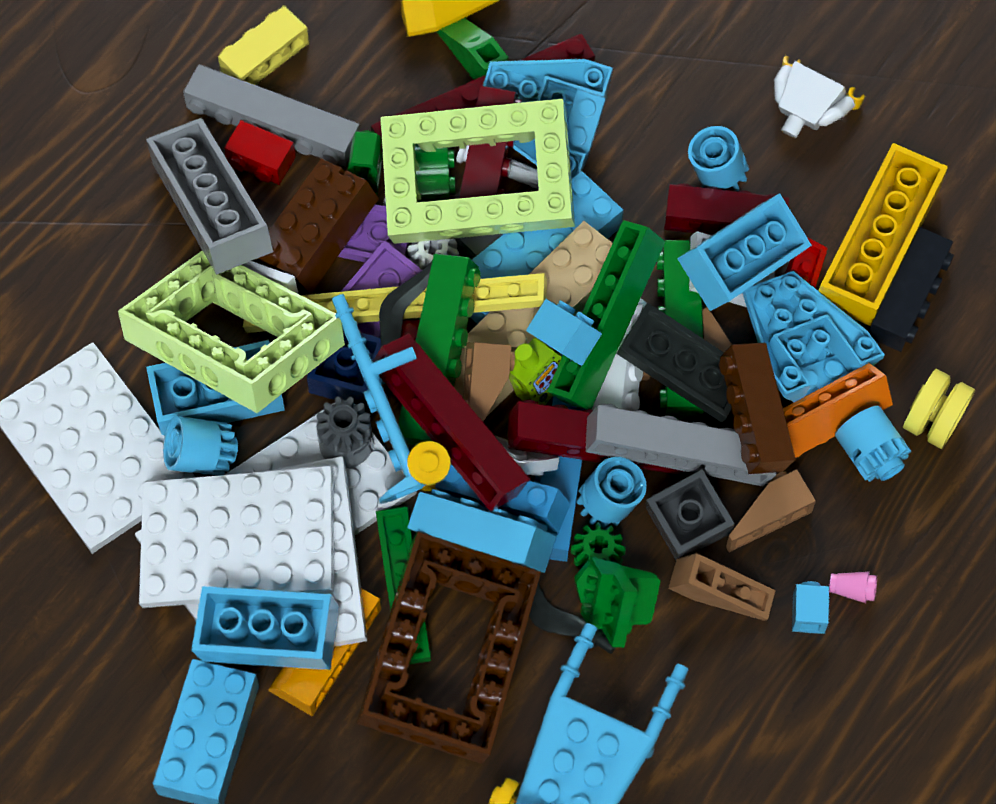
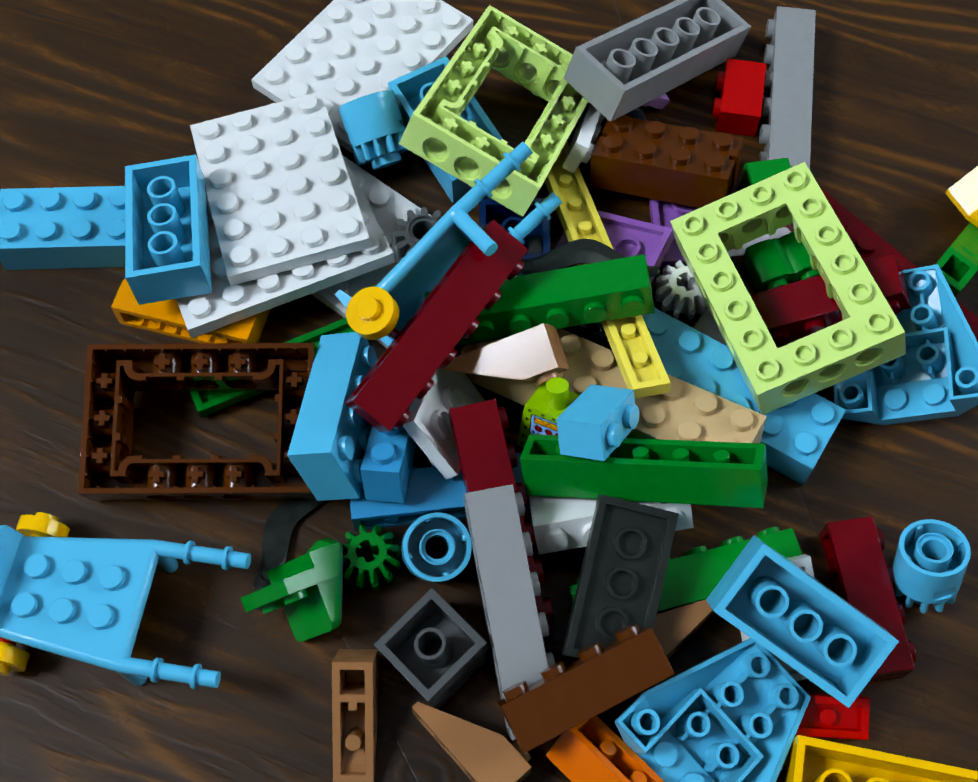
camera: 75 degrees right, 0 degrees up
(264, 47) = (865, 67): light yellow brick -> none

